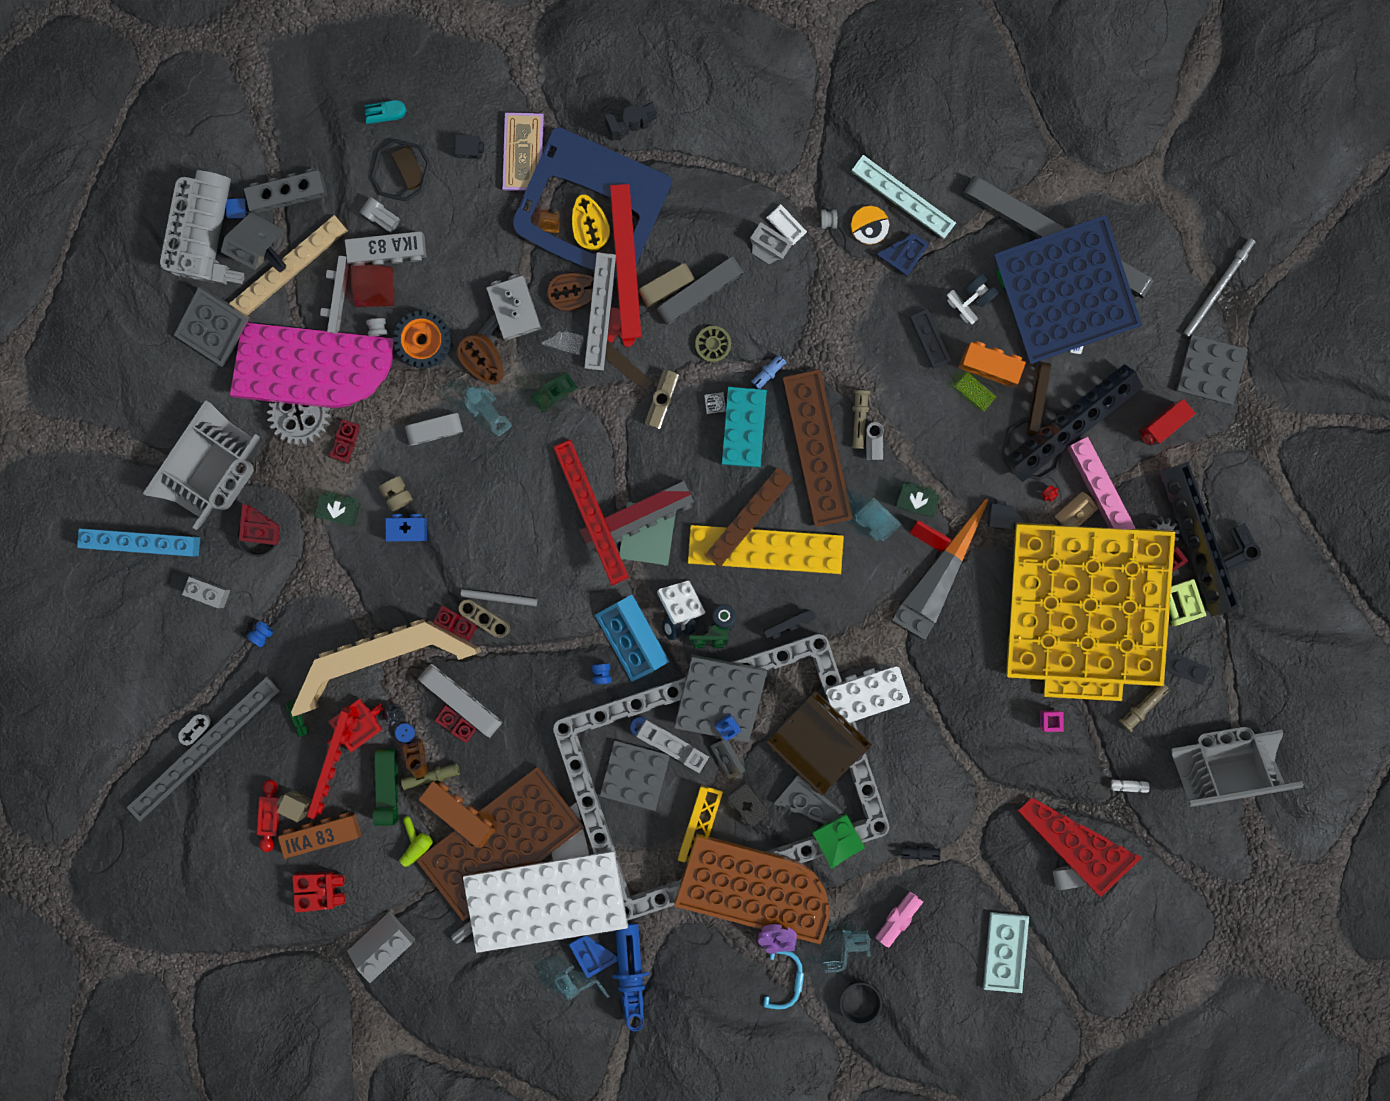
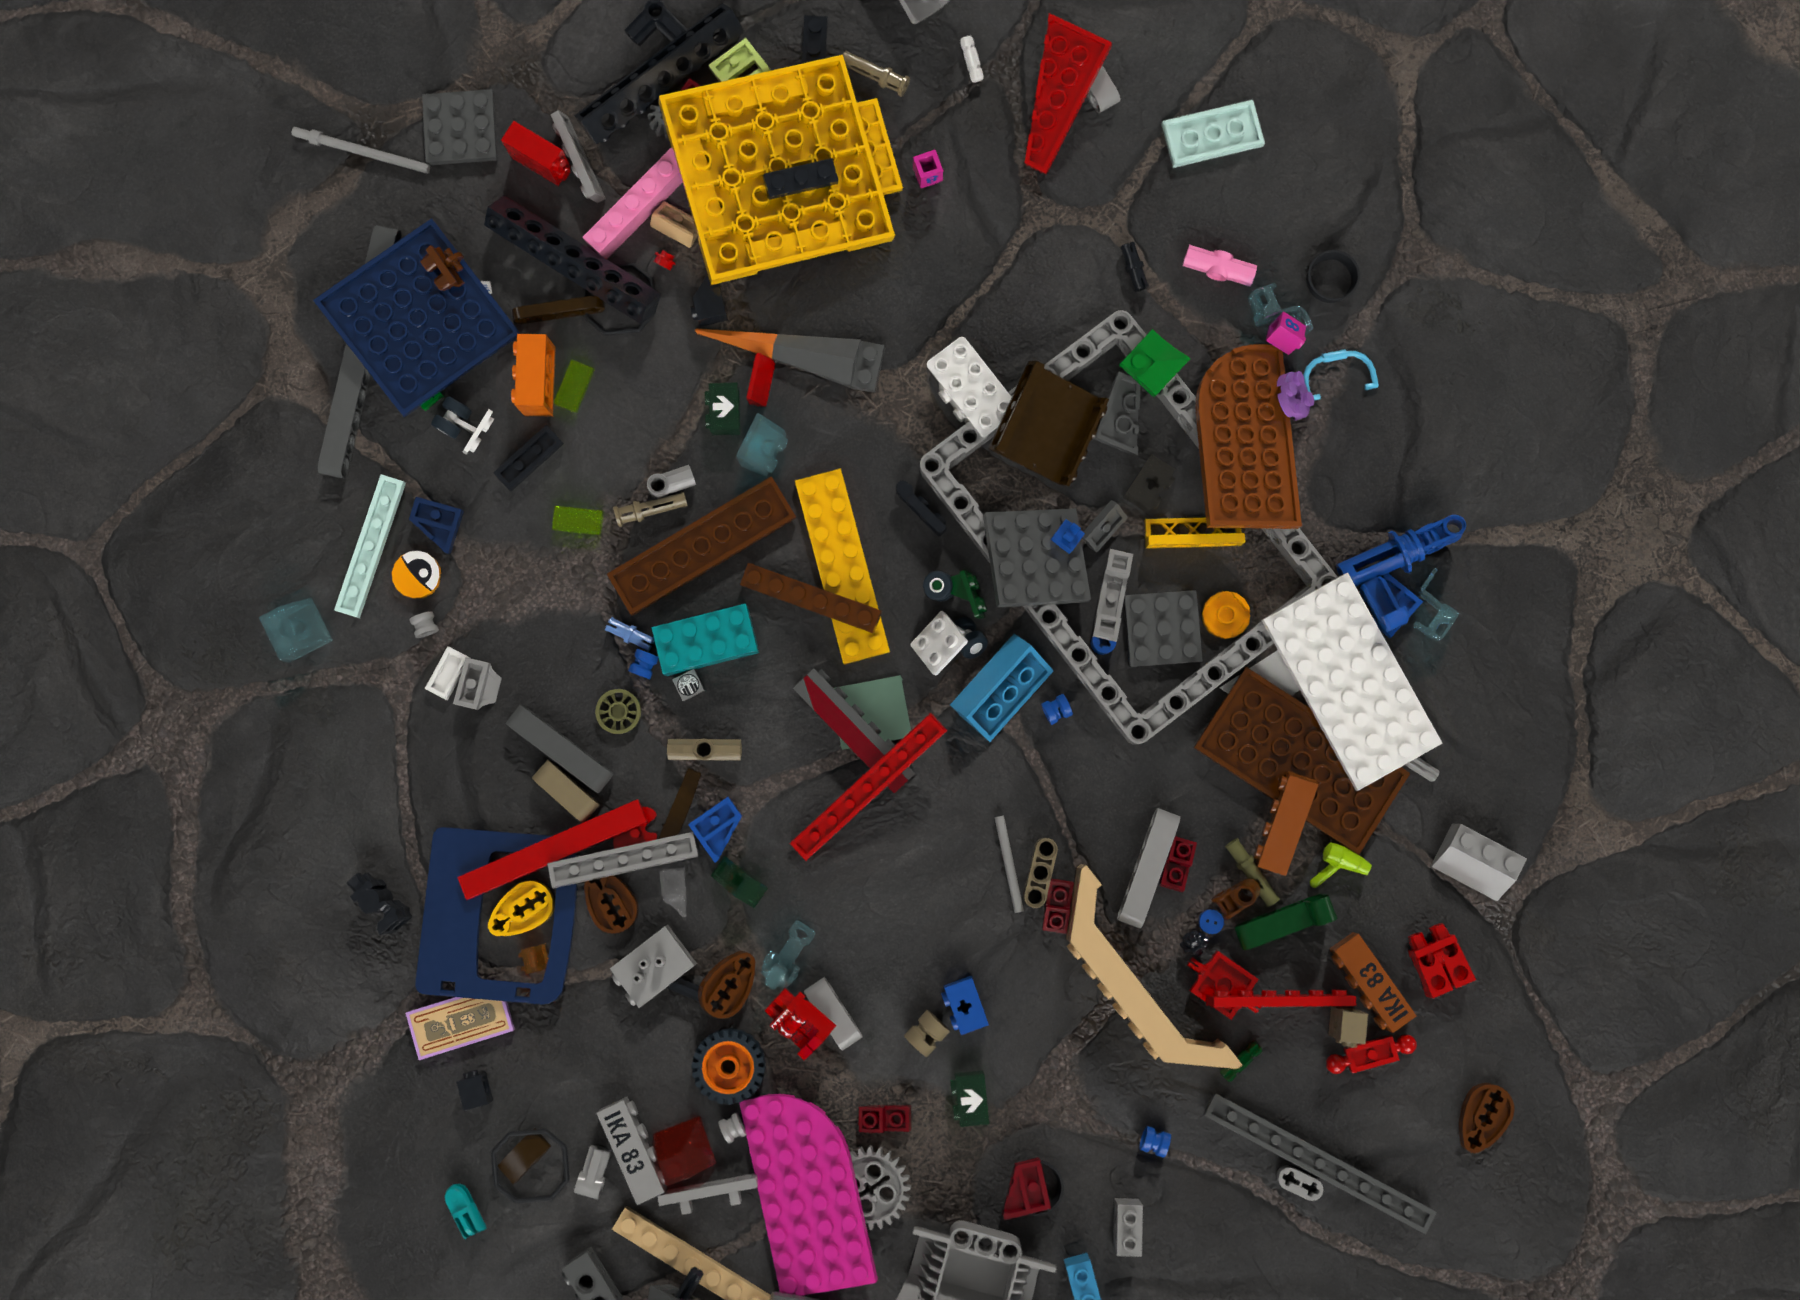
camera: 105 degrees left, 5 degrees down
(205, 877) = (1498, 1120): none -> reddish brown piece
(435, 402) = (799, 1021): none -> red hips
(594, 947) = (1383, 604): none -> blue animal
(601, 388) = (716, 827): none -> blue wing
(629, 826) = (1226, 614): none -> light orange tile
(742, 374) = (643, 664): none -> blue wheel
(827, 950) = (1286, 333): none -> dark pink brick
(858, 121) = (295, 629): none -> clear light blue slope
(869, 360) = (577, 520): none -> clear neon green tile
(1074, 619) = (800, 178): none -> black plate
(1099, 326) = (438, 259): none -> reddish brown hips
(1161, 452) = (574, 150): none -> light grey plate

